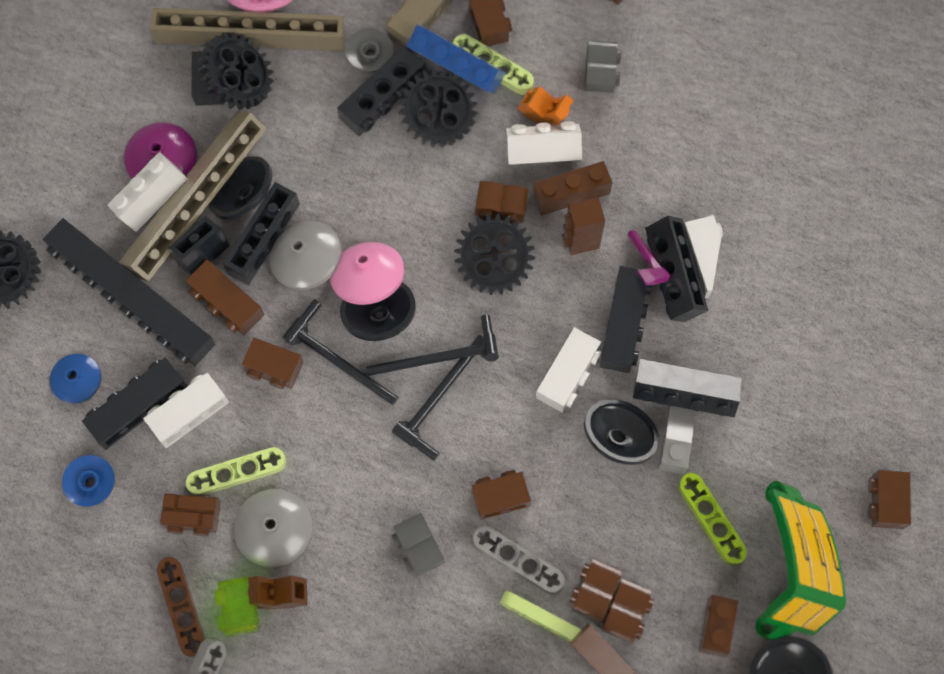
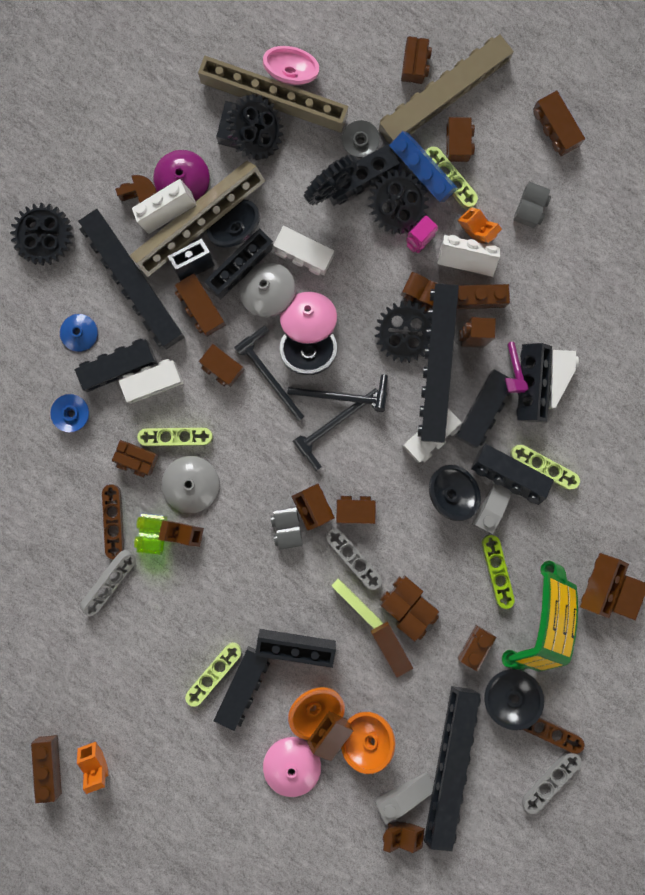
camera: 10 degrees right, 15 degrees up
(112, 180) = (140, 188): none -> reddish brown brick
(337, 196) = (303, 251): none -> white brick
(357, 86) = (340, 171): none -> black gear
(443, 505) = (313, 507): none -> reddish brown brick
(478, 135) = (421, 234): none -> dark pink brick
(549, 278) = (439, 363): none -> black brick
(727, 364) = (545, 465): none -> yellowish green beam
(854, 492) = (604, 585): none -> reddish brown brick

